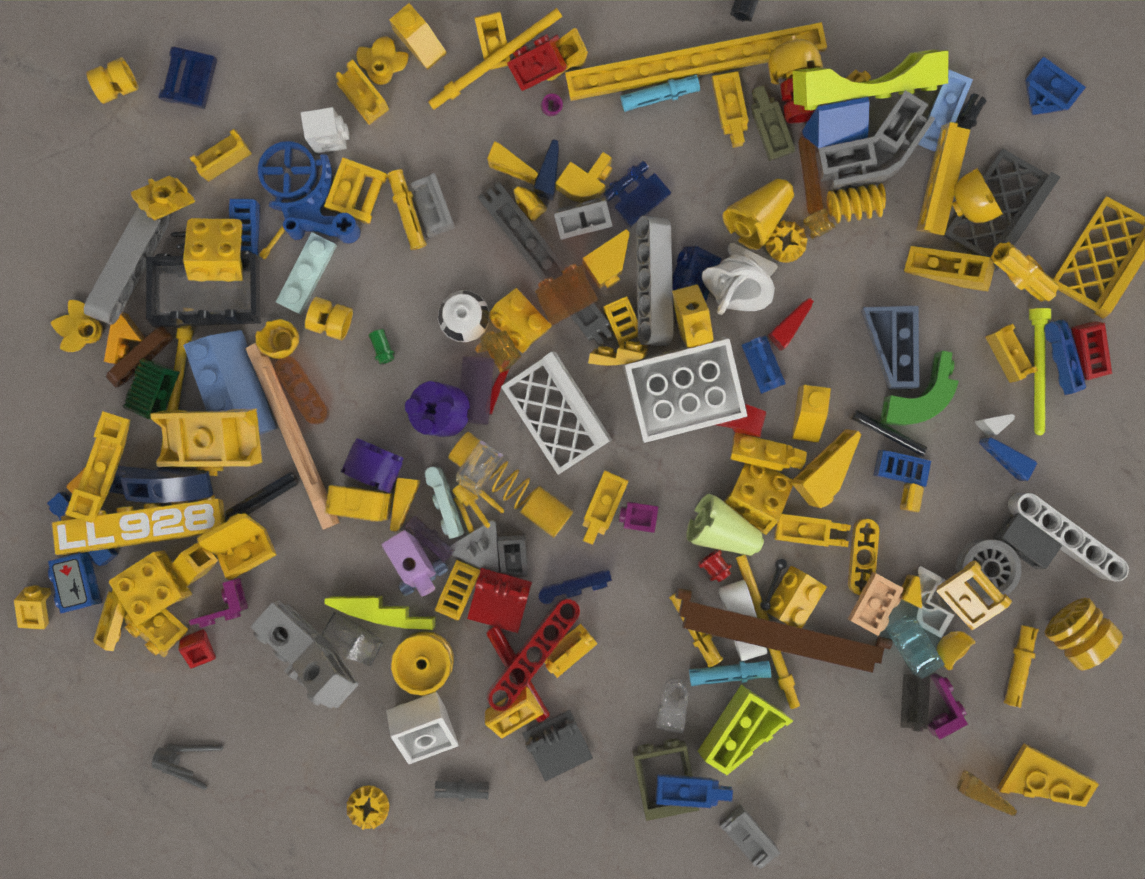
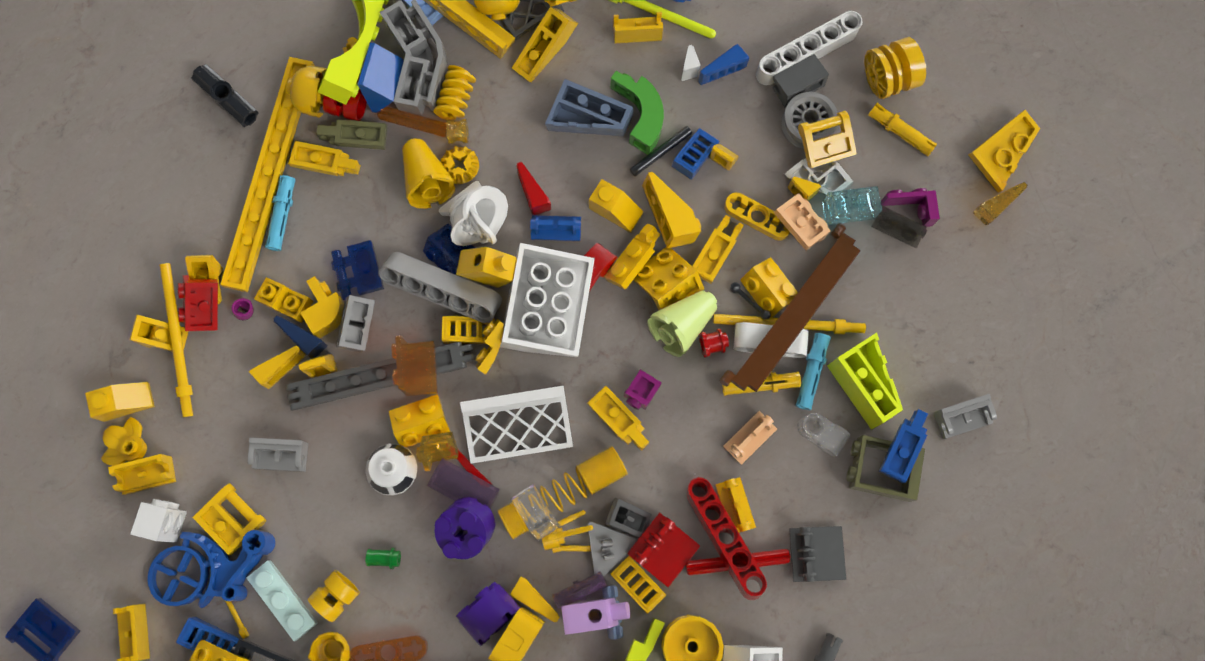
camera: 70 degrees left, 10 degrees down
(409, 218) = (259, 478): yellow pin -> none
(444, 501) = (551, 561): light aqua hinge -> none
(520, 713) = (777, 591): yellow slope -> none
(573, 587) = (679, 475): clear blue plate -> none
(577, 137) = (283, 299): none -> yellow slope
(607, 261) = (403, 318): yellow slope -> none
(639, 638) = (750, 437): none -> light nougat hinge
(953, 647) = (864, 173): yellow hair -> none

